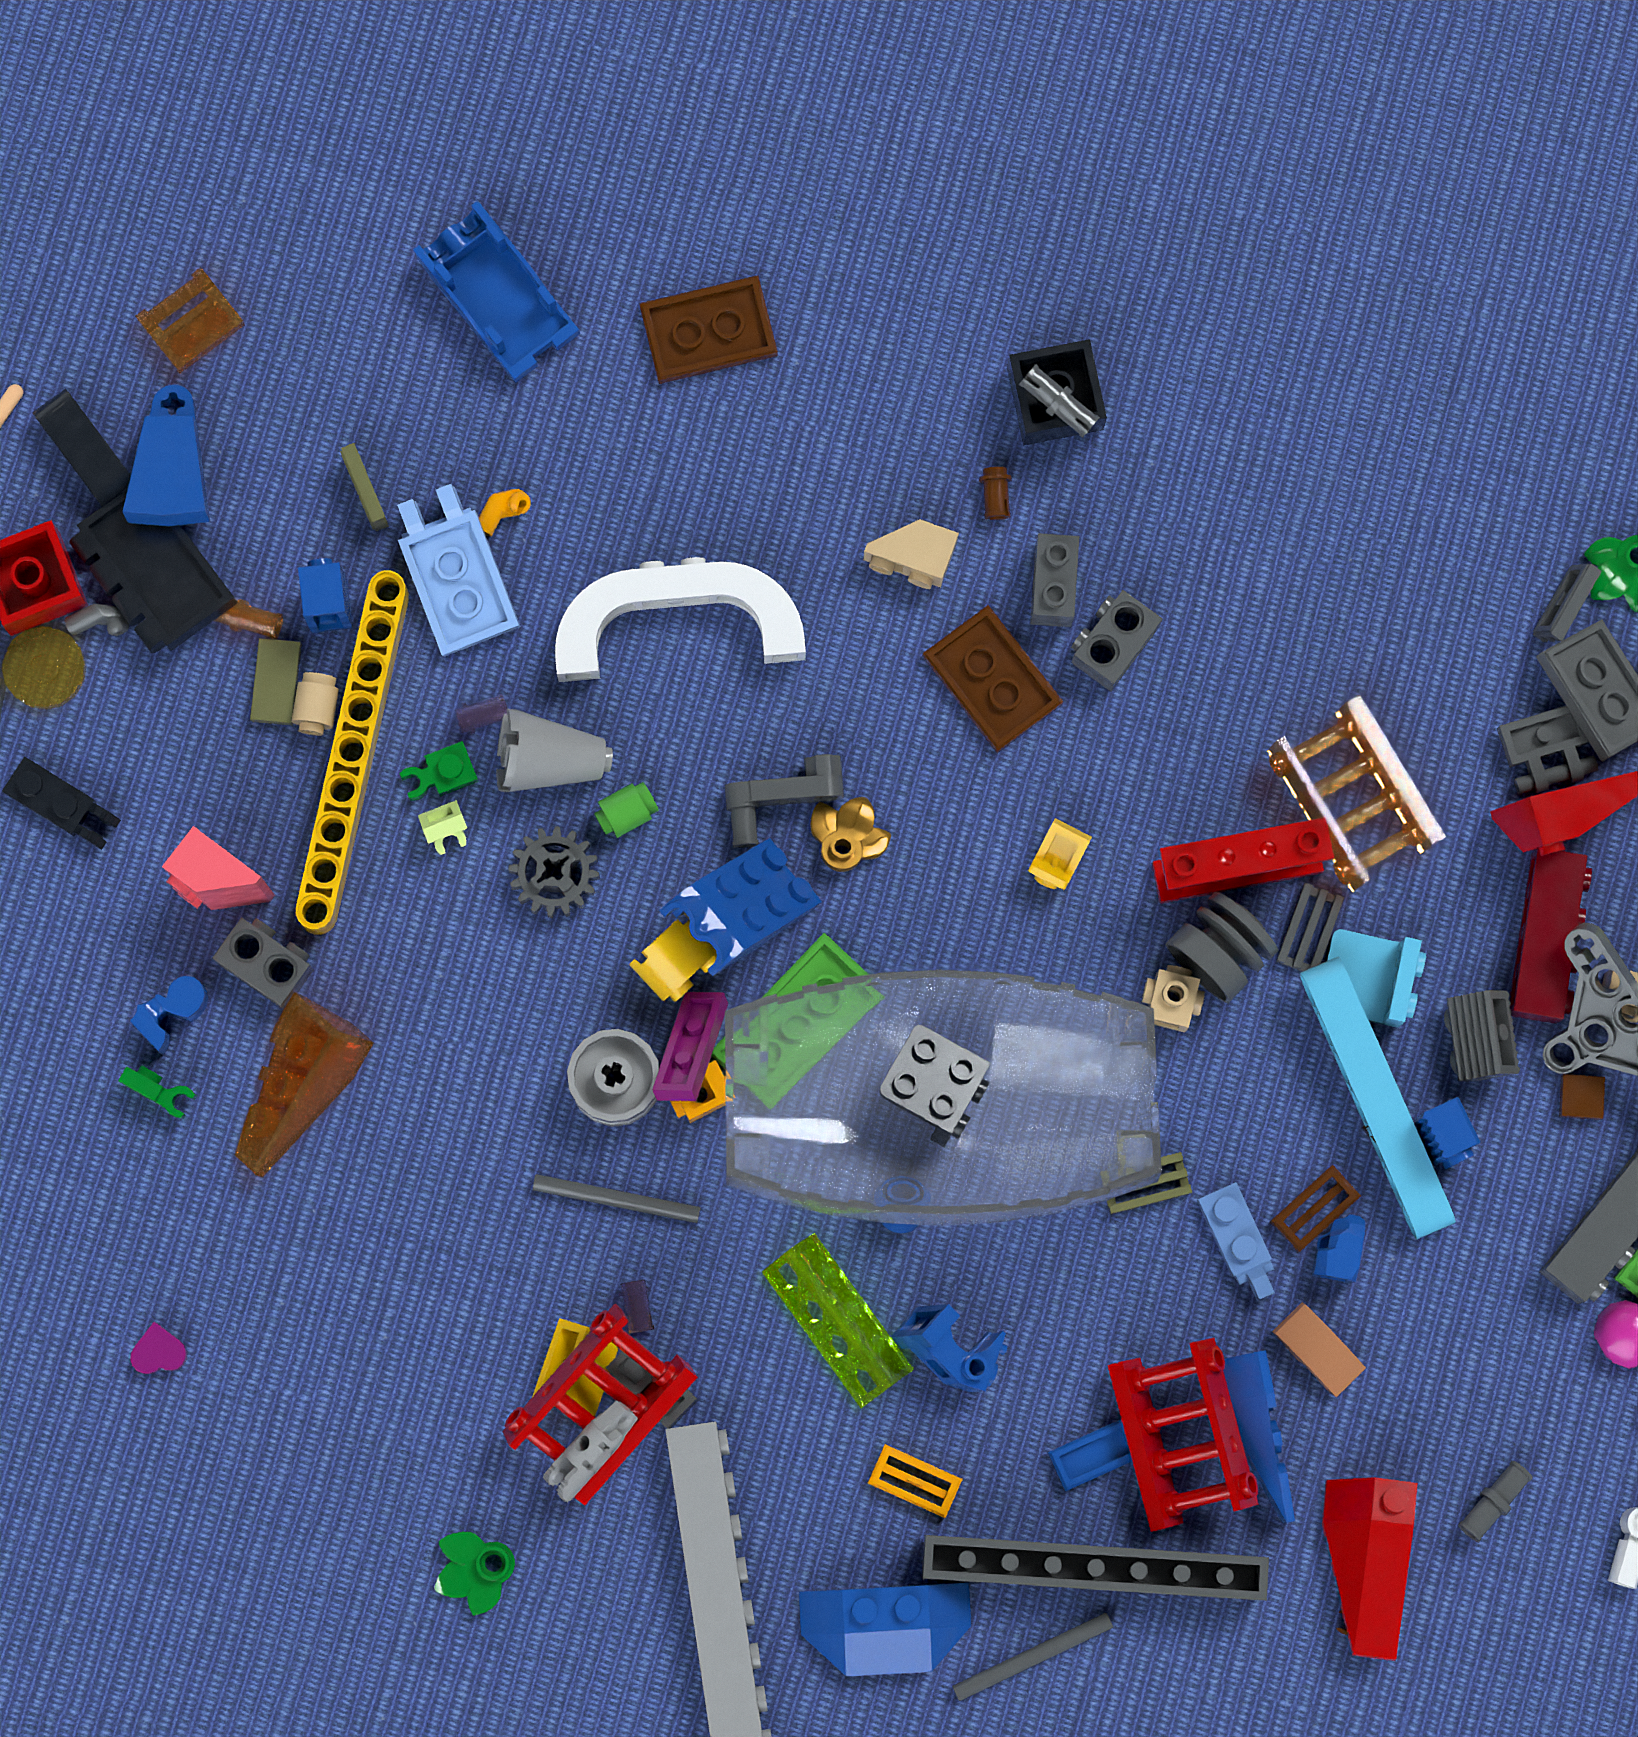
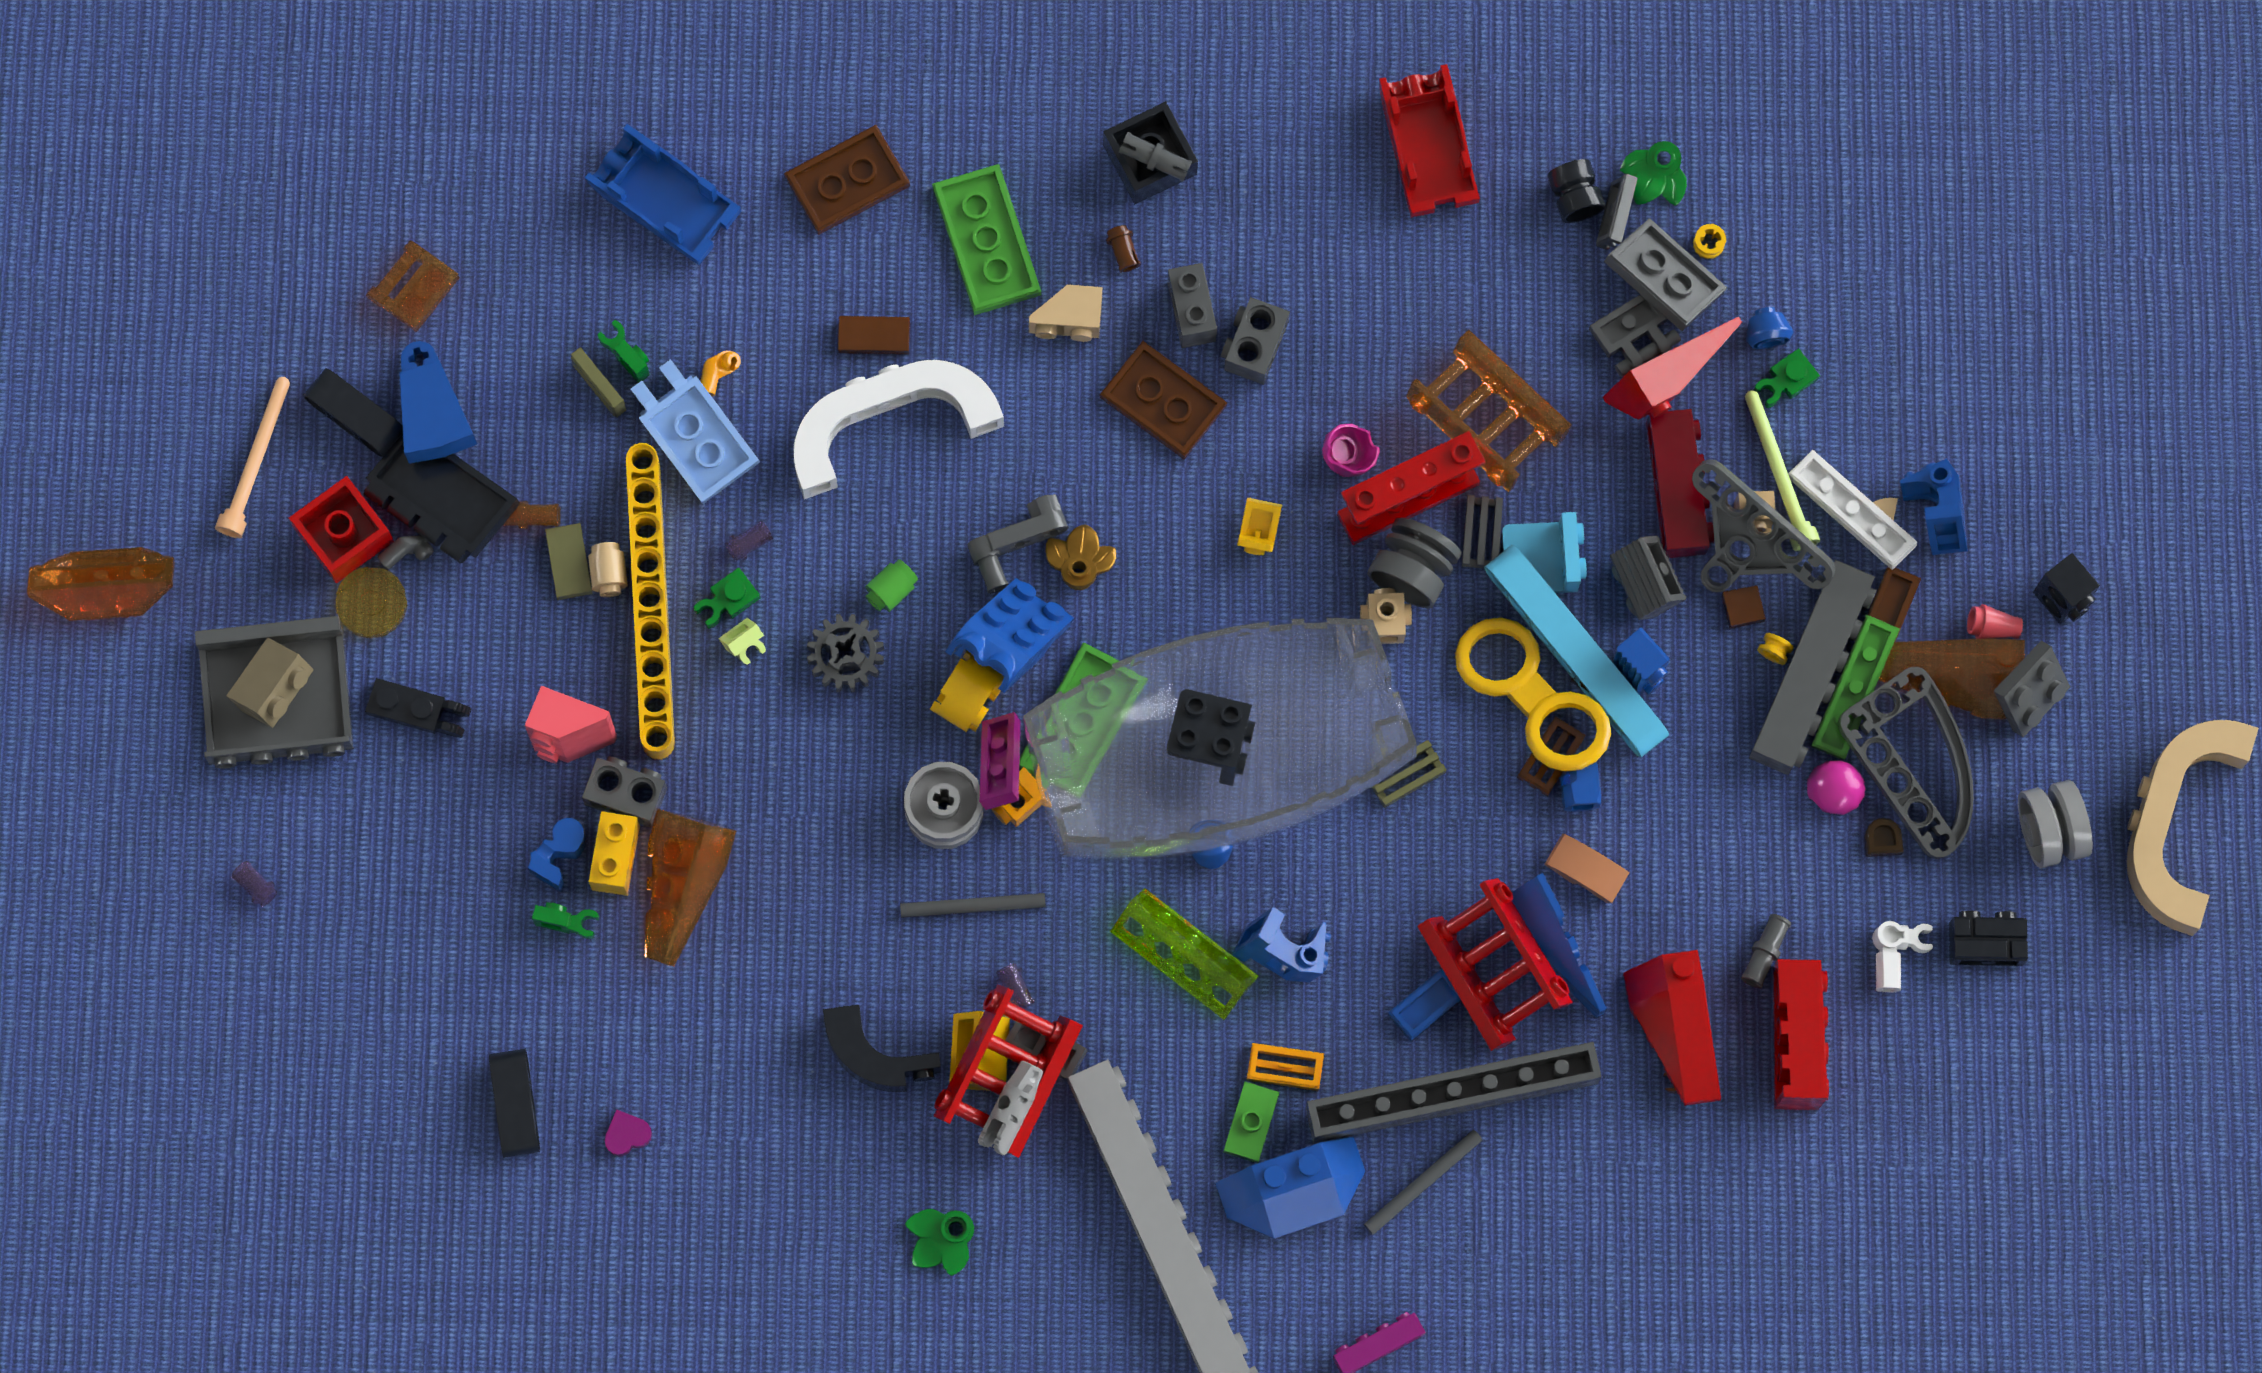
camera: 15 degrees left, 5 degrees down
(42, 1282) = (514, 1103): none -> black beam
(231, 1030) = (614, 853): none -> yellow brick
(325, 596) = (592, 478): blue brick -> none
(409, 469) = (632, 359): none -> green plate
(434, 1327) = (867, 1064): none -> black arch
(547, 753) = (812, 557): light grey cone -> none
(688, 516) = (873, 335): none -> reddish brown tile
(845, 440) = (986, 239): none -> bright green tile
(858, 1534) = (1251, 1122): none -> bright green plate
(1186, 796) = (1349, 450): none -> dark pink hair
(1238, 1238) = (1495, 797): medium blue hinge -> none
(1314, 1134) = (1533, 694): none -> yellow bar
(1376, 463) = (1429, 141): none -> red piece
(1506, 1610) = (1800, 1035): none -> red wedge
(1527, 572) = (1577, 195): none -> black wheel
(1604, 1156) = (1775, 648): none -> yellow bush

